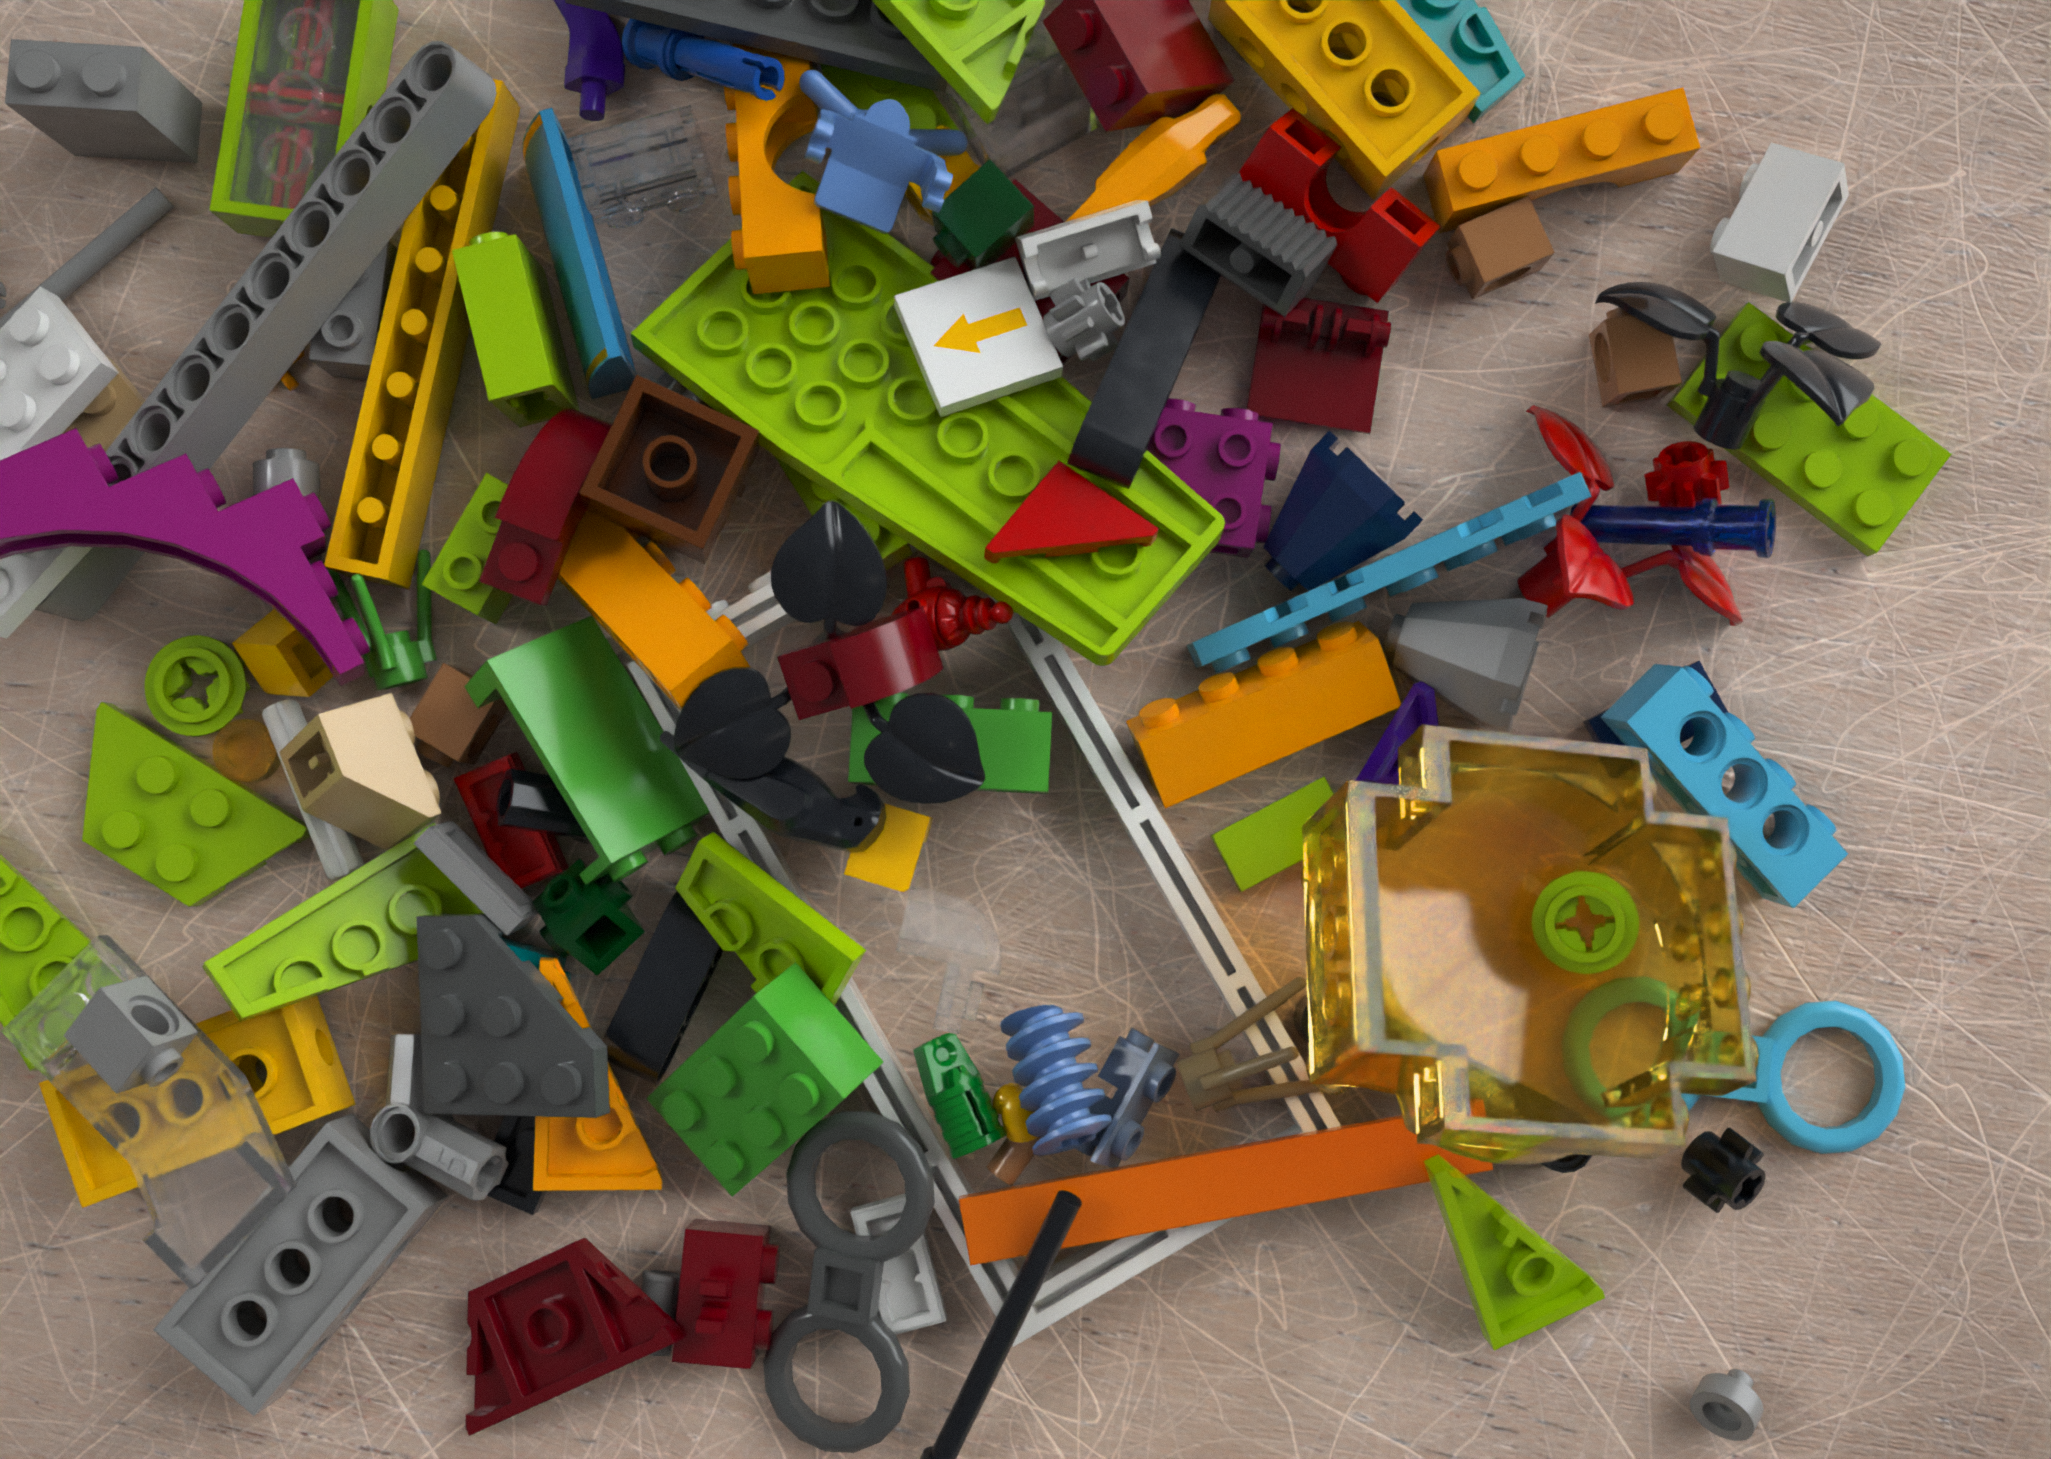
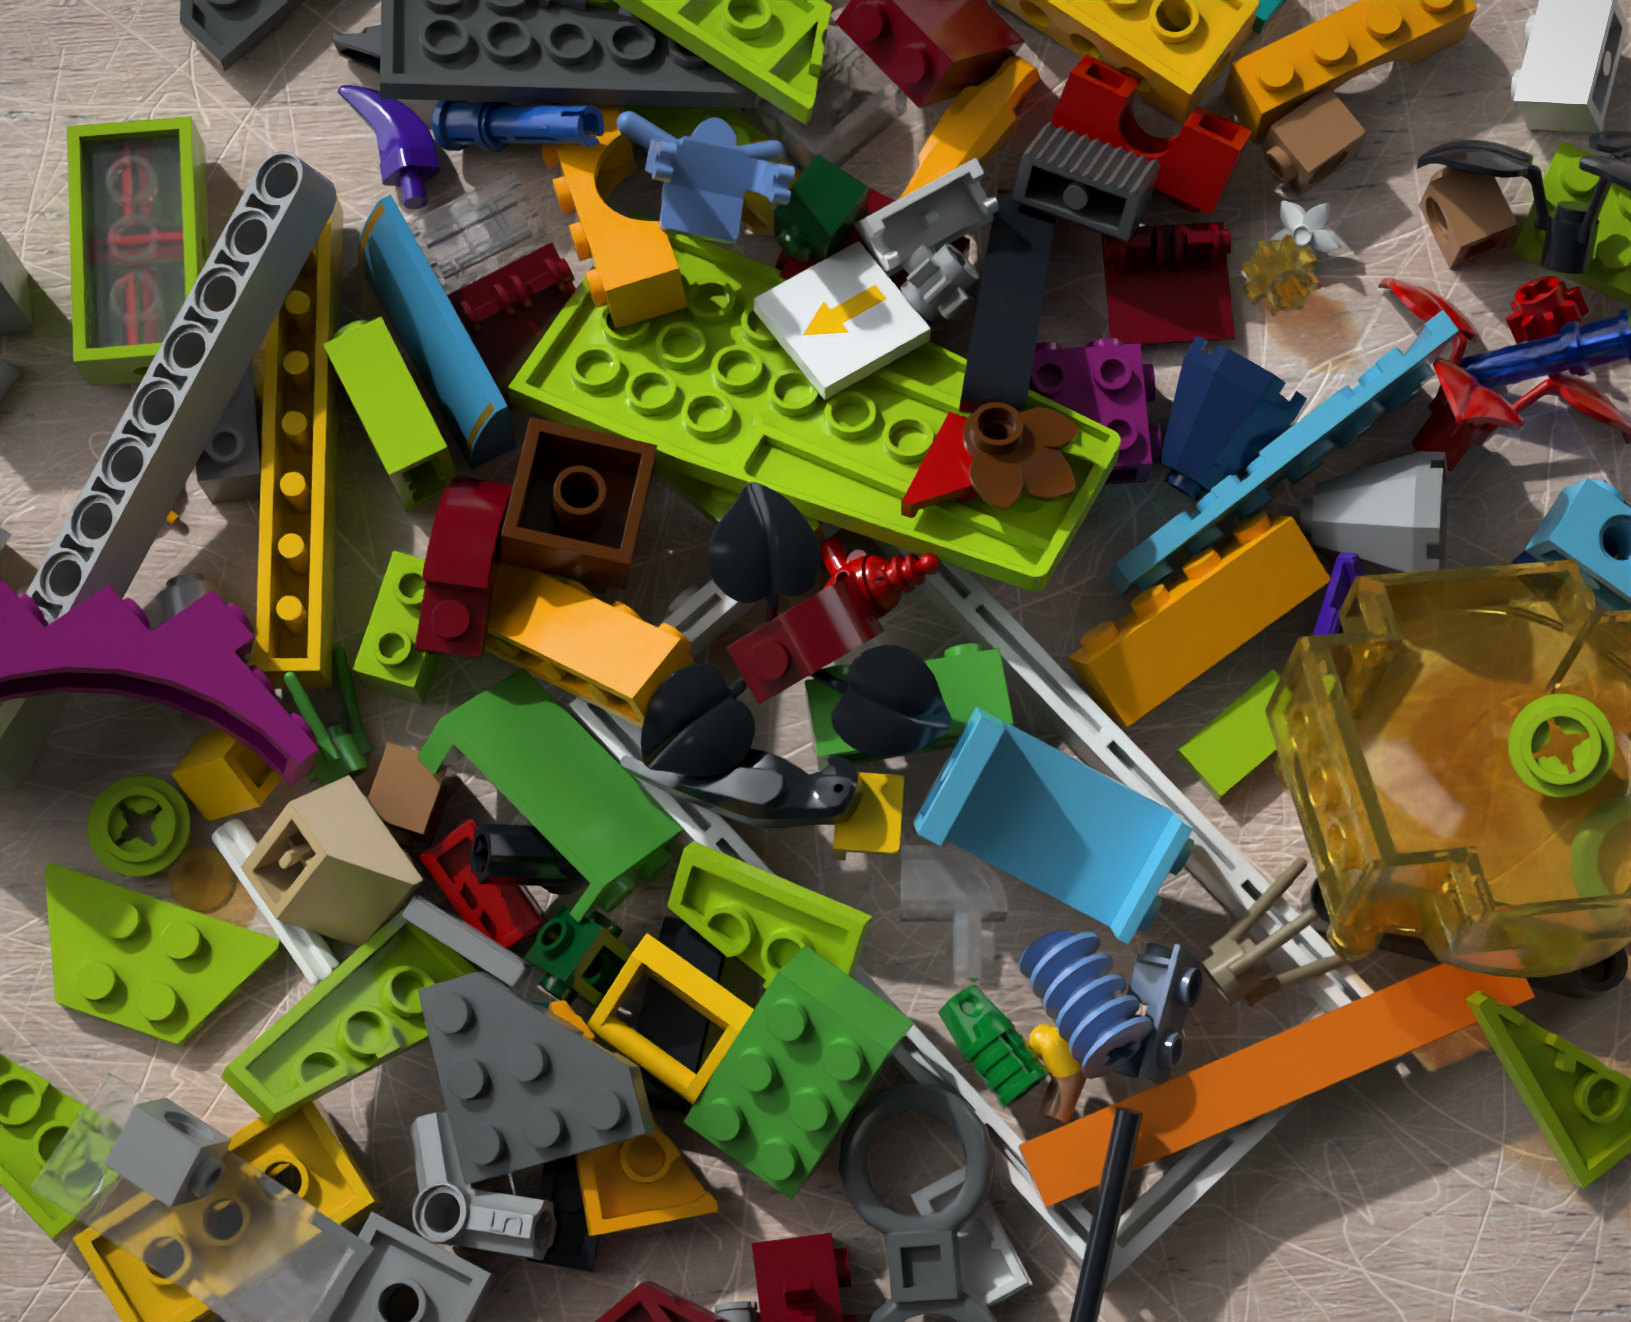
camera: 15 degrees left, 10 degrees down
(657, 250) = (513, 310): none -> dark red hinge
(677, 974) = (692, 988): none -> yellow tile
(1067, 897) = (1055, 824): none -> medium azure panel
(1118, 535) = (1024, 460): none -> reddish brown plate
(1431, 381) = (1281, 275): none -> clear yellow gear
(1466, 341) = (1306, 227): none -> white plant

